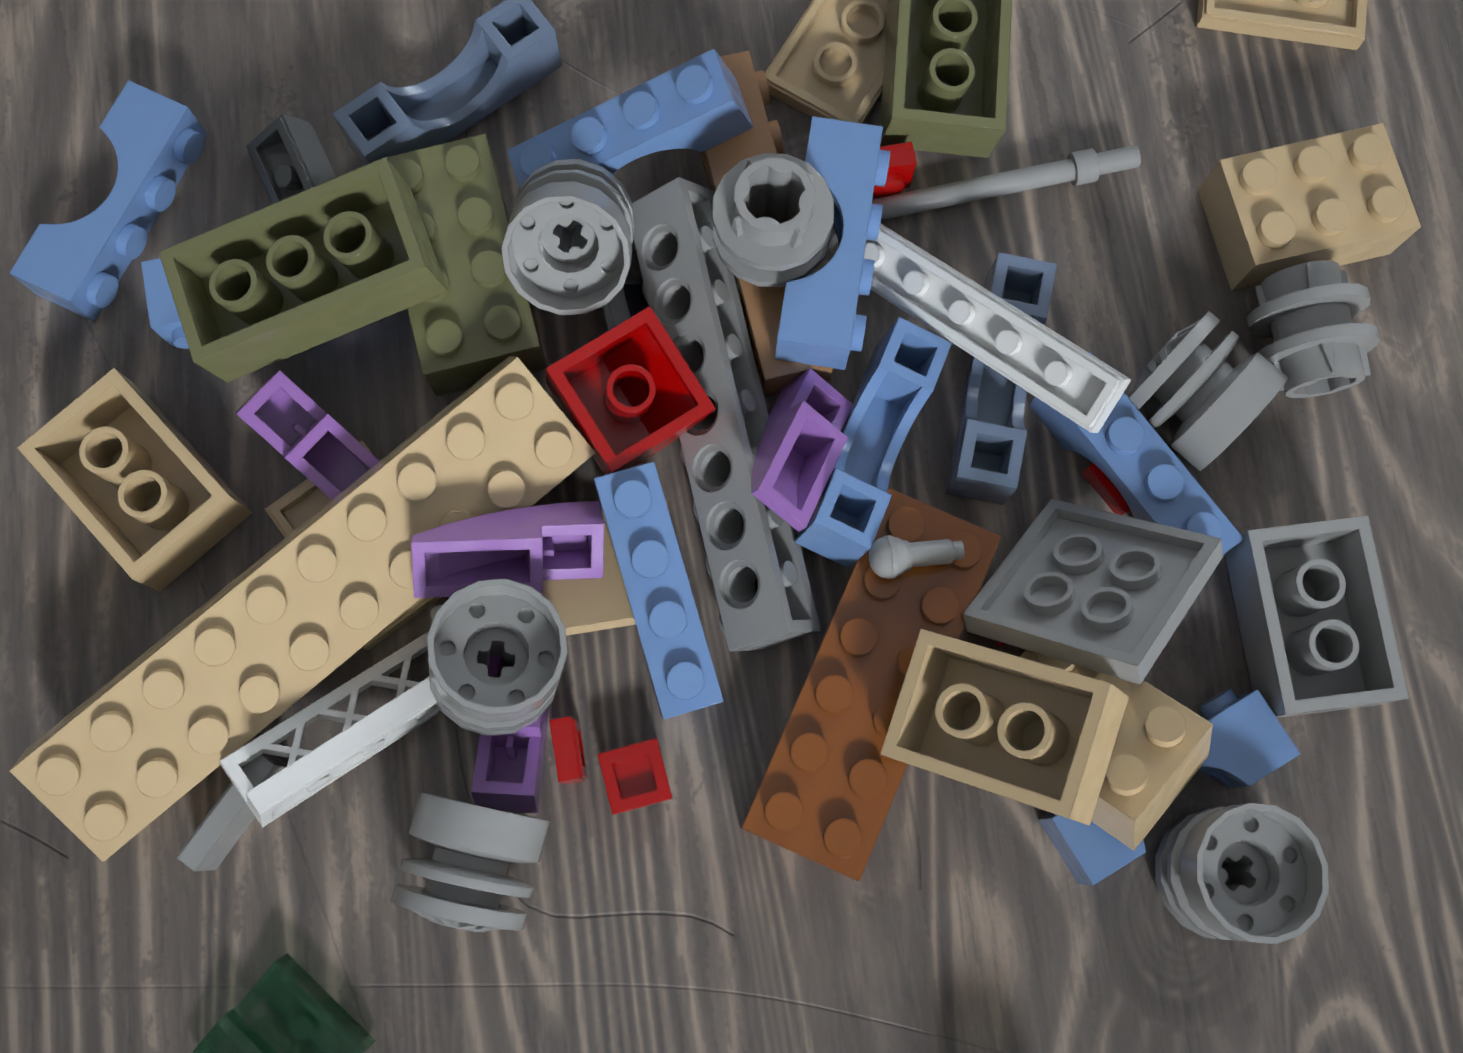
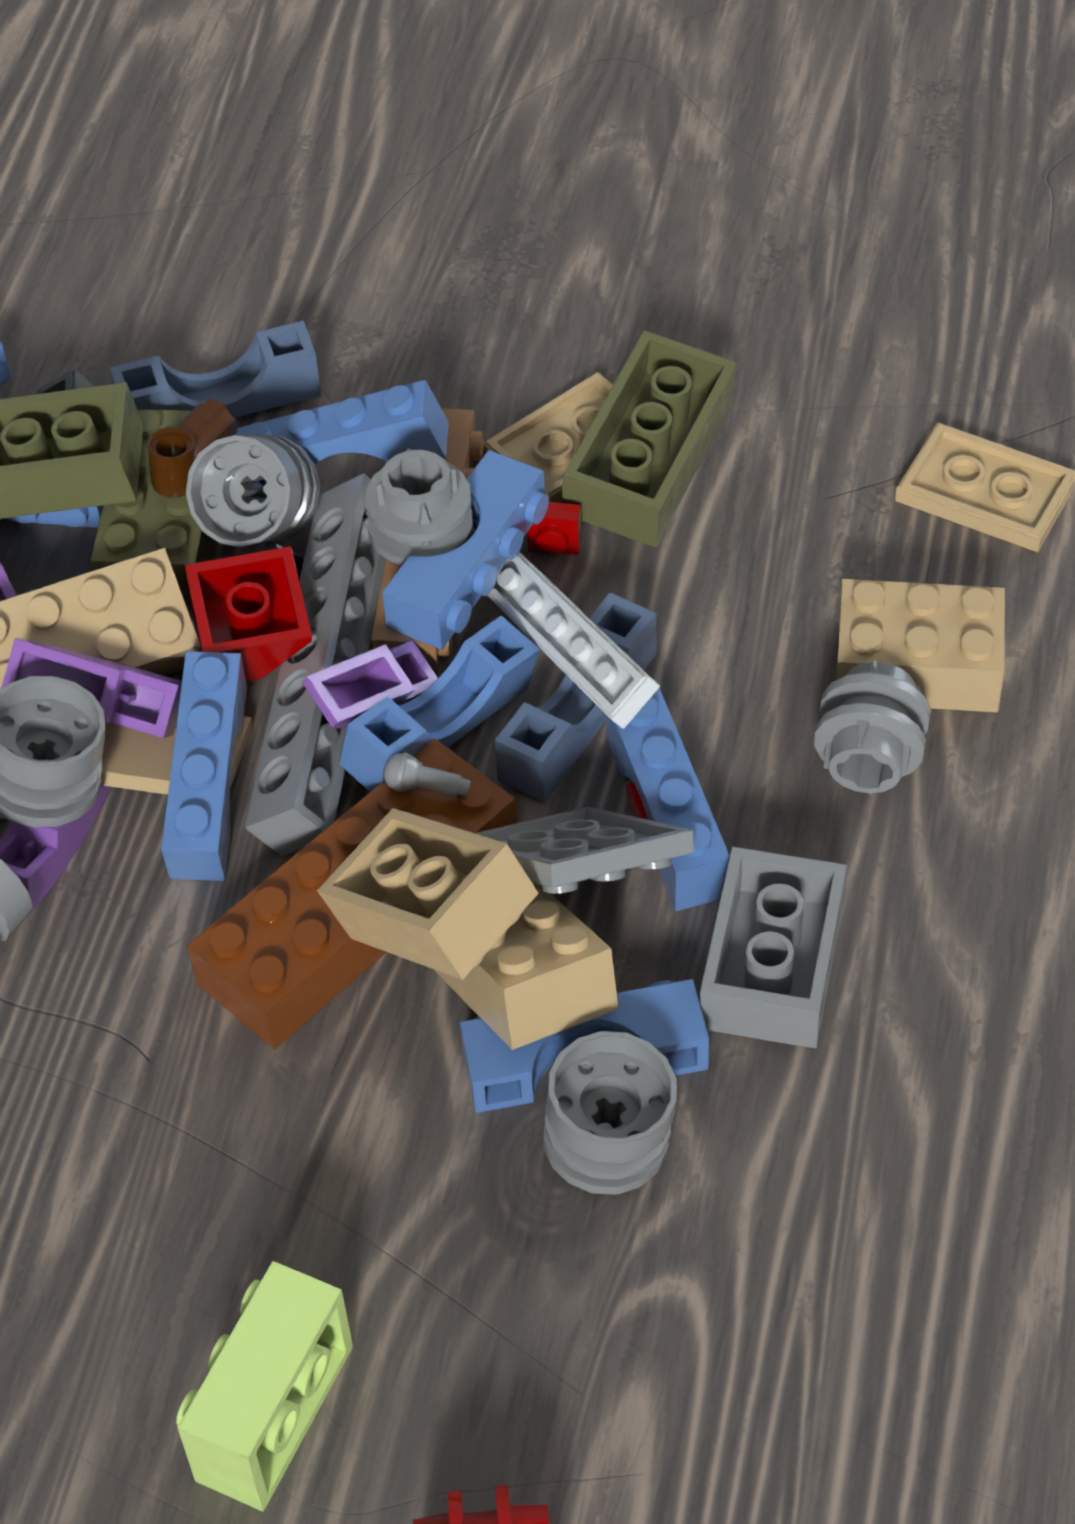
camera: 25 degrees right, 25 degrees down
(478, 203) = (176, 448): none -> reddish brown piece
(568, 750) = (75, 869): red tile -> none
(634, 776) = (122, 907): red plate -> none
(1079, 169) = (734, 571): light grey bar -> none
(1205, 391) = (750, 745): light grey wheel -> none

